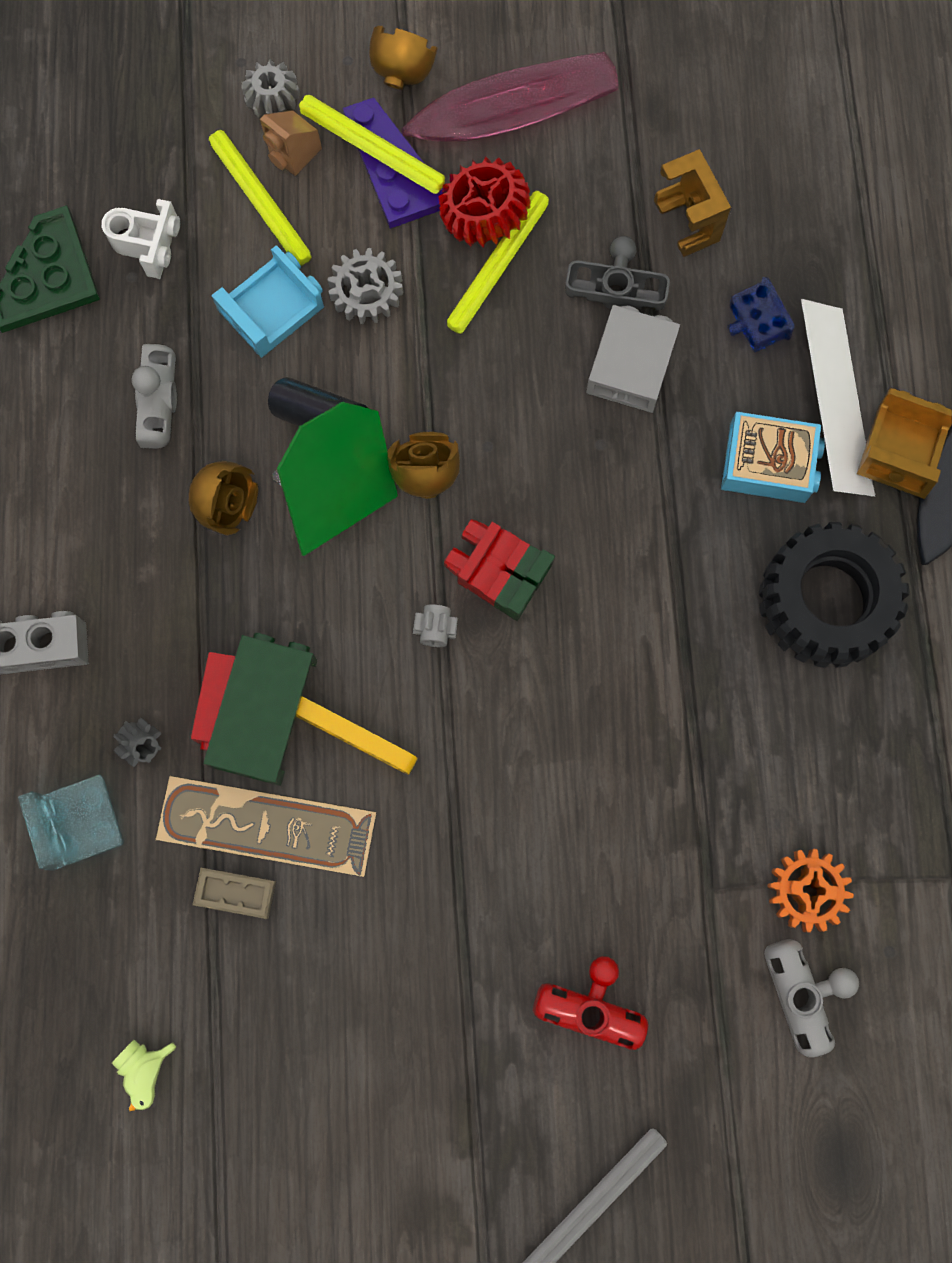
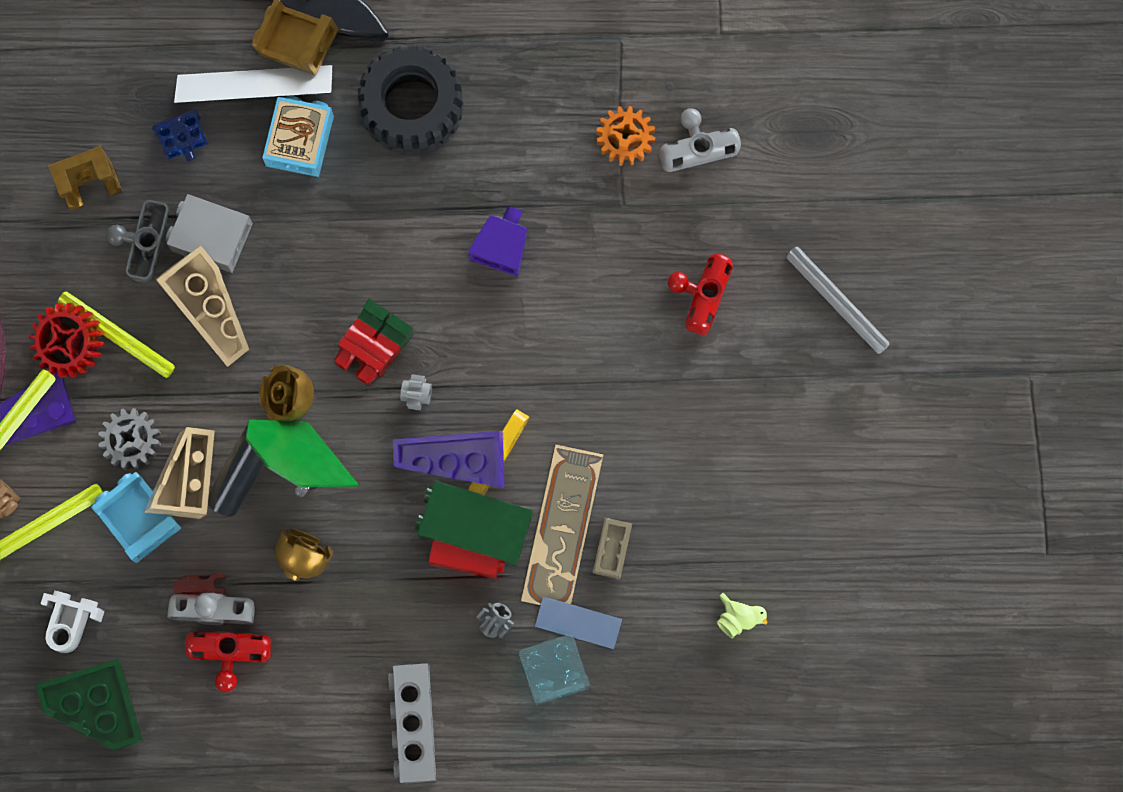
camera: 90 degrees left, 0 degrees up
(106, 400) = (211, 646): none -> red piece
(139, 852) = (579, 622): none -> sand blue sticker
(183, 373) = (192, 585): none -> clear red plate
(311, 349) = (185, 477): none -> tan wedge
(347, 684) = (457, 456): none -> dark purple wing
(545, 353) = (202, 297): none -> tan wedge
(645, 726) = (501, 243): none -> dark purple torso

